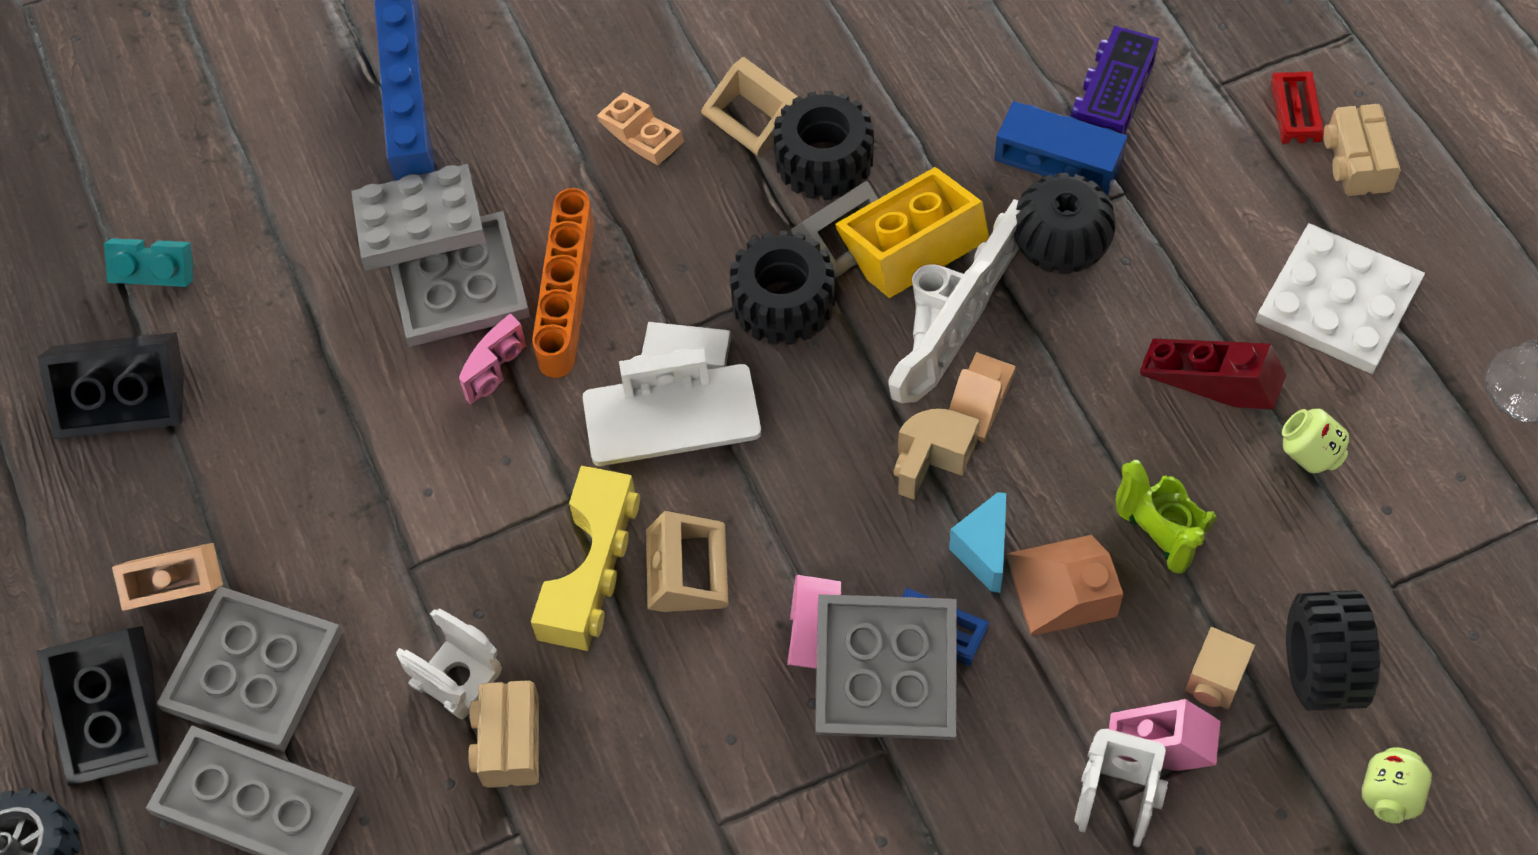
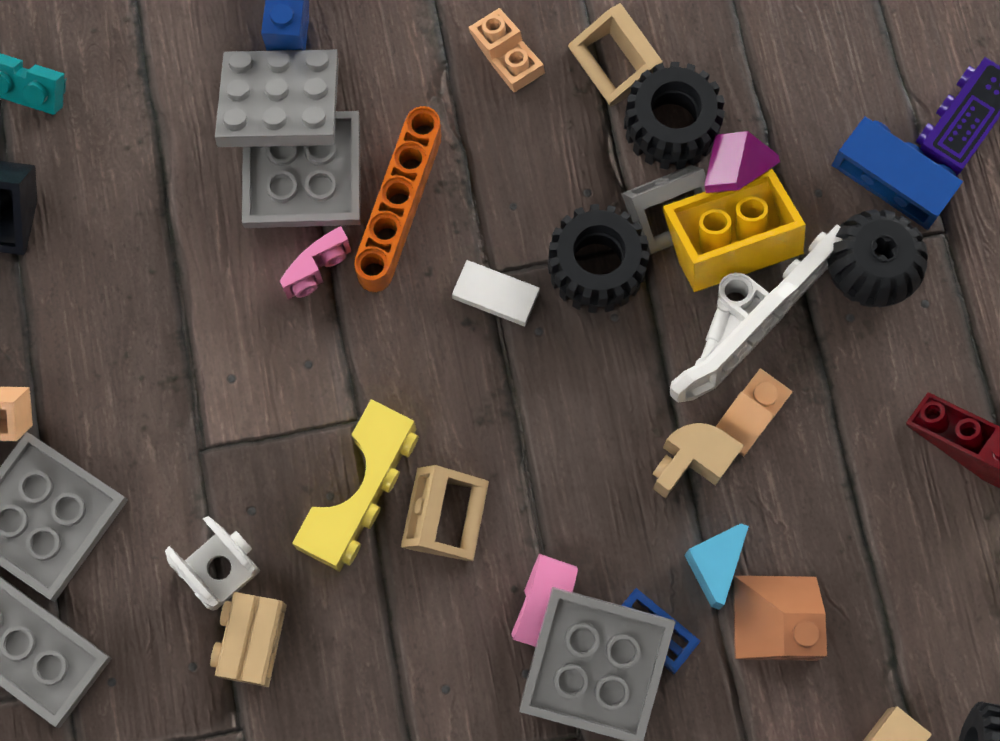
camera: 10 degrees right, 15 degrees up
(670, 408) = (466, 355): white bracket -> none
(898, 162) = (737, 161): none -> magenta slope
(1164, 513) = (876, 572): lime hair -> none

